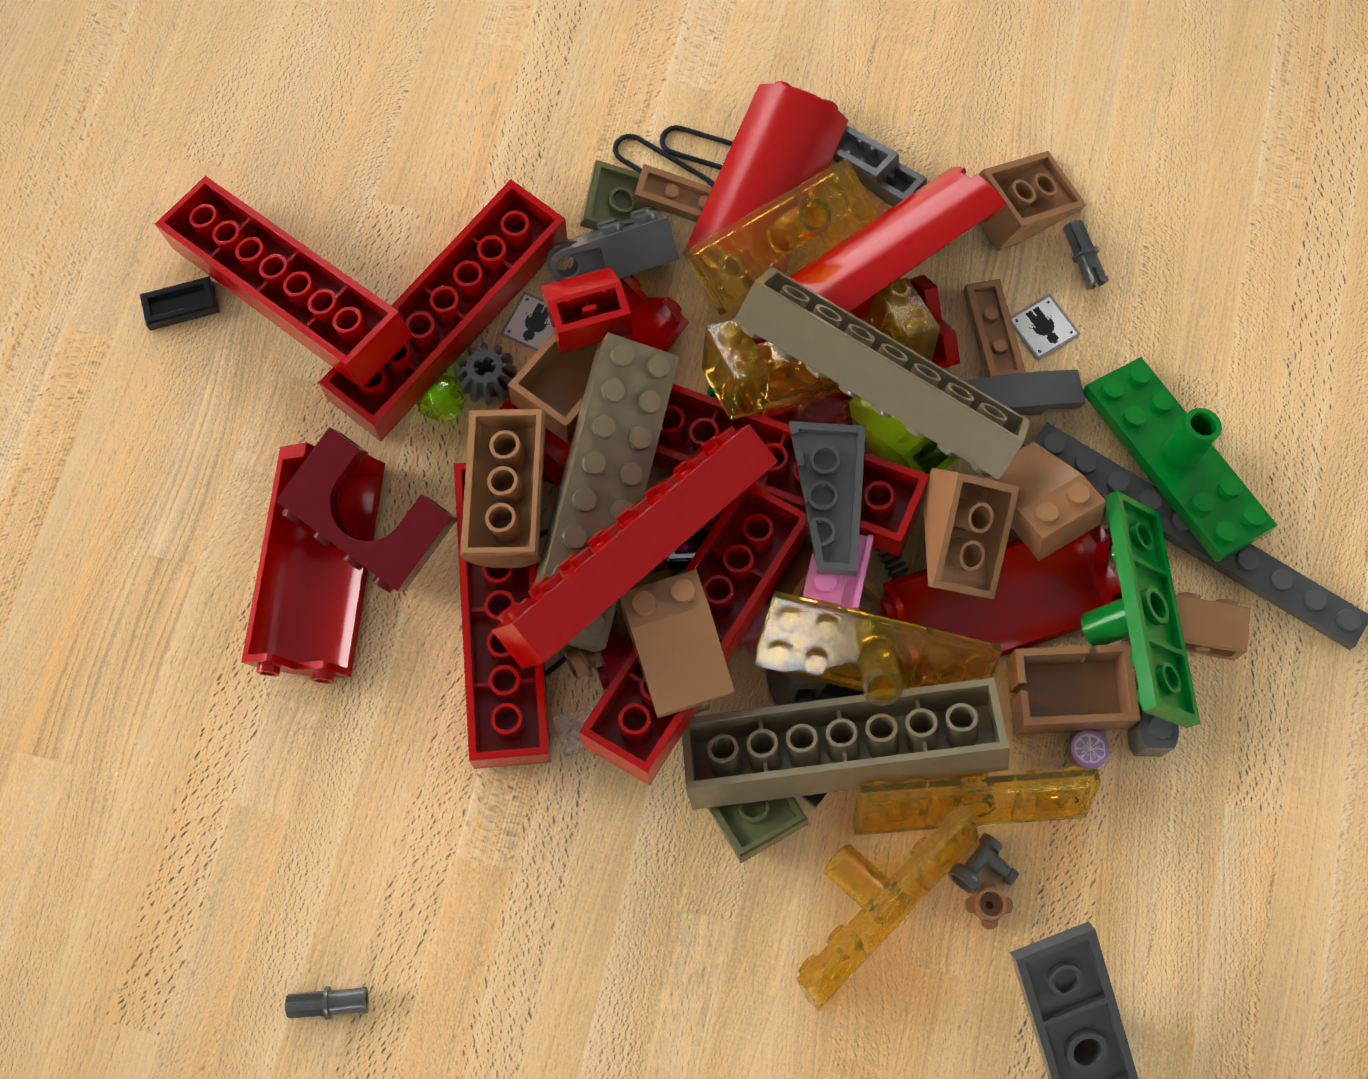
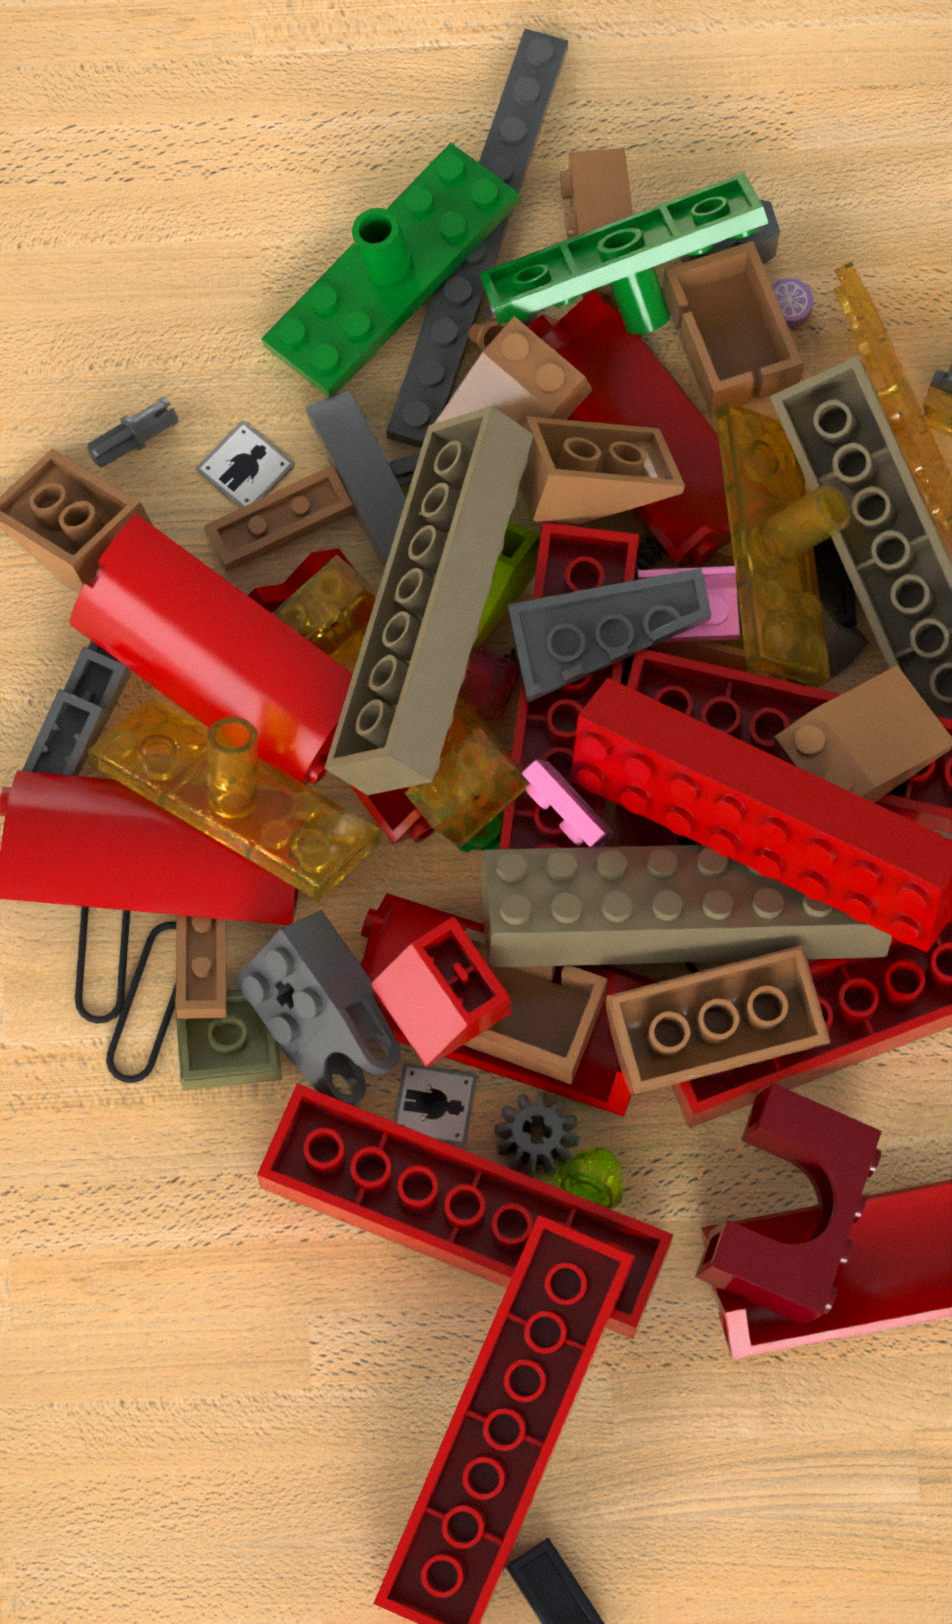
camera: 105 degrees left, 0 degrees up
(689, 430) = (580, 820): none -> bright pink plate

